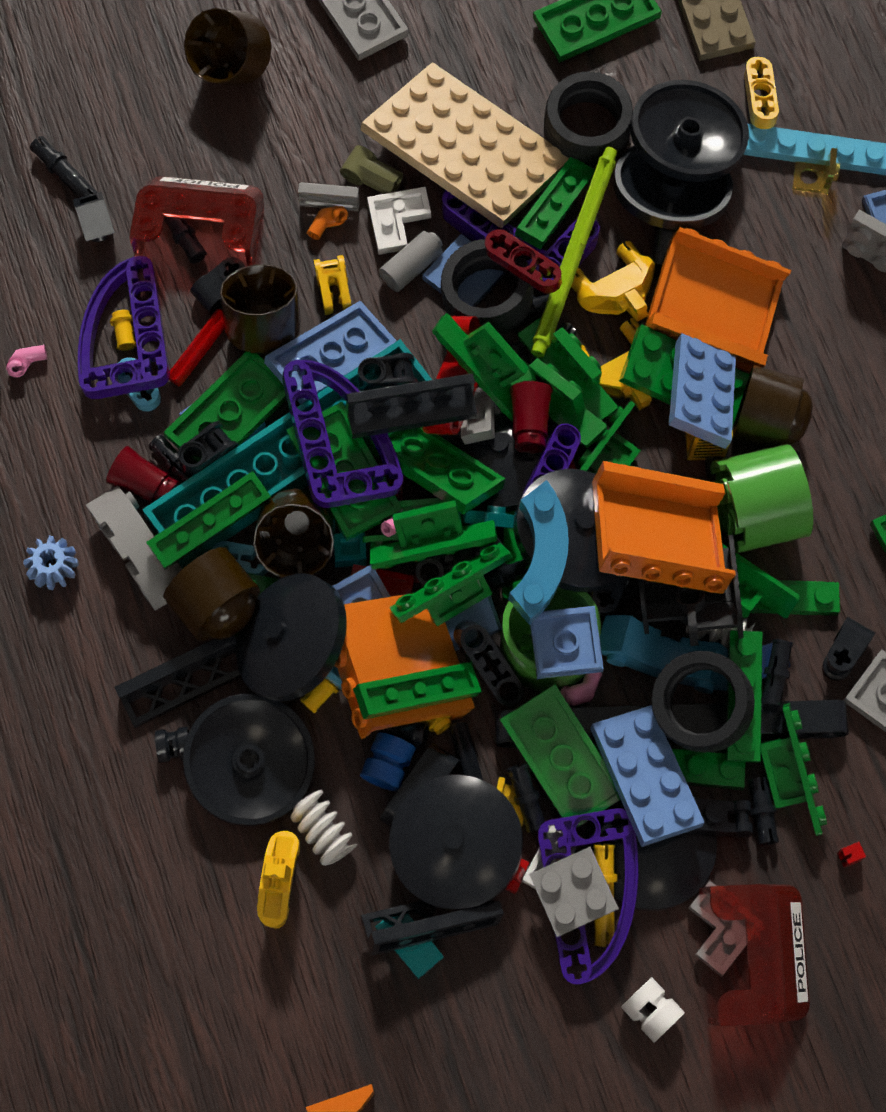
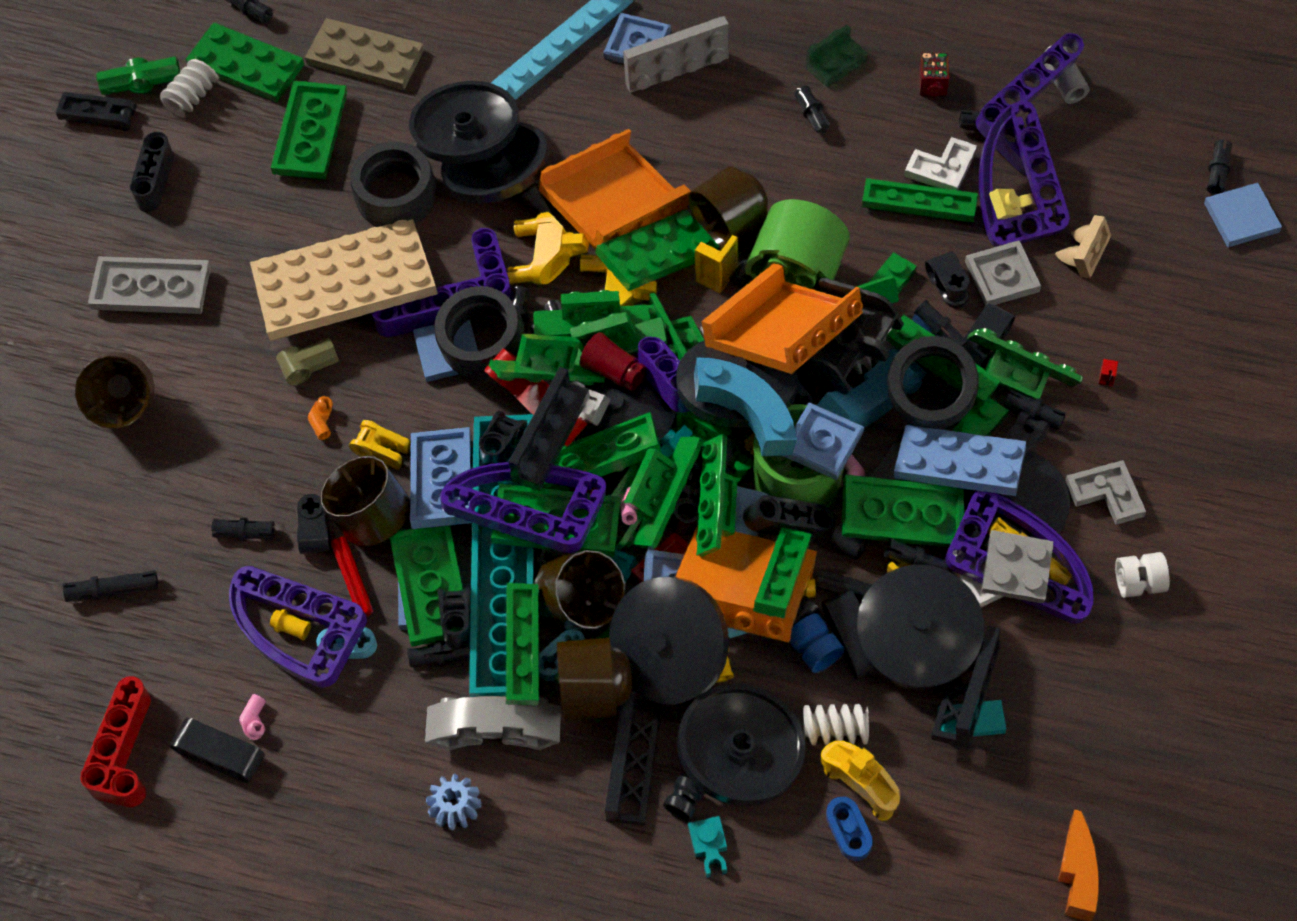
camera: 50 degrees left, 10 degrees down
(94, 217) = (173, 584): brick -> none
(139, 476) = (433, 684): dark red plant -> none
(152, 788) = (708, 841): none -> teal plate
(230, 203) = (205, 518): clear red windscreen -> none
(234, 899) = (849, 830): none -> blue plate
(328, 196) = (302, 402): light grey tile -> none
(391, 211) = (354, 368): white plate -> none
(411, 260) = (407, 377): light grey brick -> none
(519, 248) = (464, 284): dark red beam -> none
(555, 203) = (445, 247): green plate -> none
(574, 251) = (500, 256): lime piece -> none
(703, 391) = (686, 234): medium blue plate -> none
(764, 83) = (452, 57): yellow beam -> none
(773, 951) = (1187, 479): clear red windscreen -> none
(824, 173) = (567, 66): clear yellow bracket -> none

